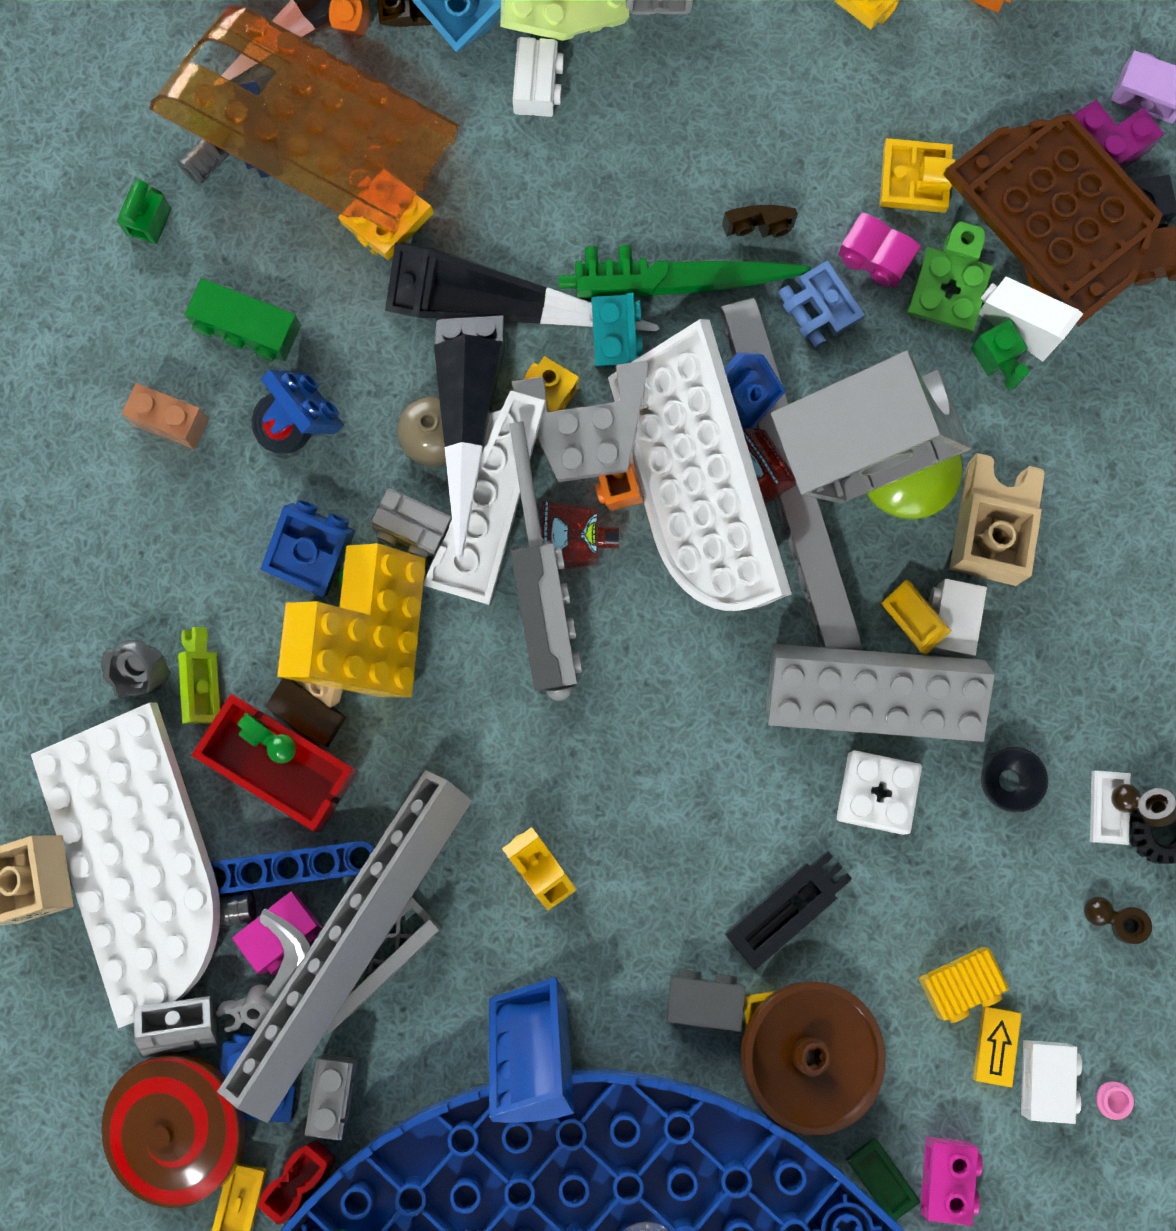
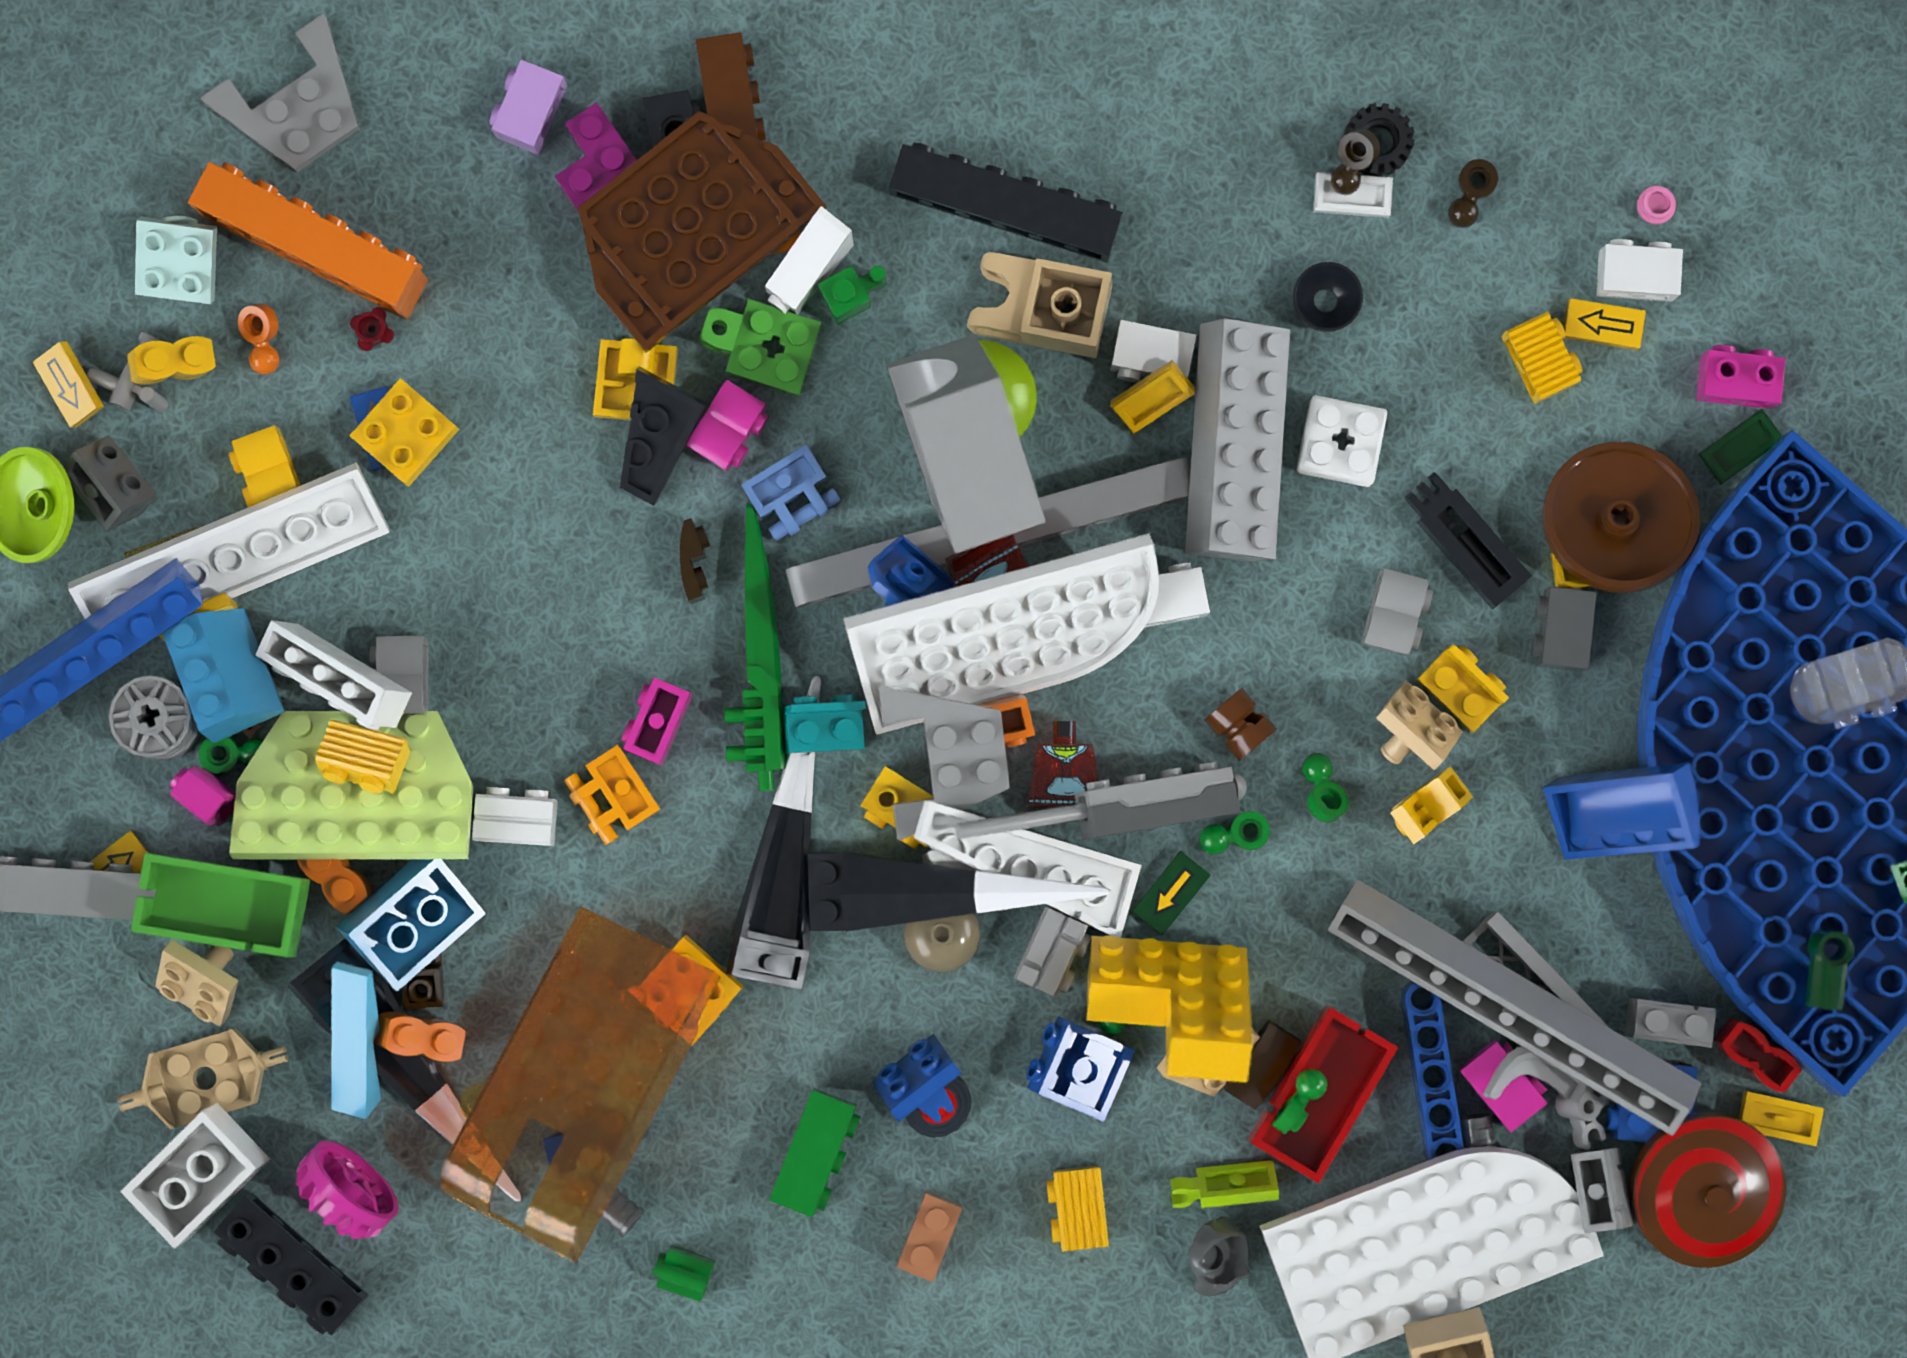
camera: 90 degrees left, 5 degrees up
(183, 547) = (1079, 1208): none -> yellow brick
(464, 633) = (1171, 893): none -> dark green tile
(512, 673) = (1216, 838): none -> green plate
(562, 164) = (622, 788): none -> light orange plate
(574, 767) = (1318, 769): none -> green plate
(612, 857) = (1417, 727): none -> tan plate
(616, 693) = (1240, 724): none -> reddish brown wheel
(618, 189) = (657, 721): none -> dark pink brick
(650, 903) = (1463, 686): none -> yellow bracket
(720, 840) = (1396, 612): none -> light grey brick
(733, 636) = (1180, 596): none -> white brick
(870, 189) = (658, 434): none -> black wing
(1089, 489) = (1005, 202): none -> black brick

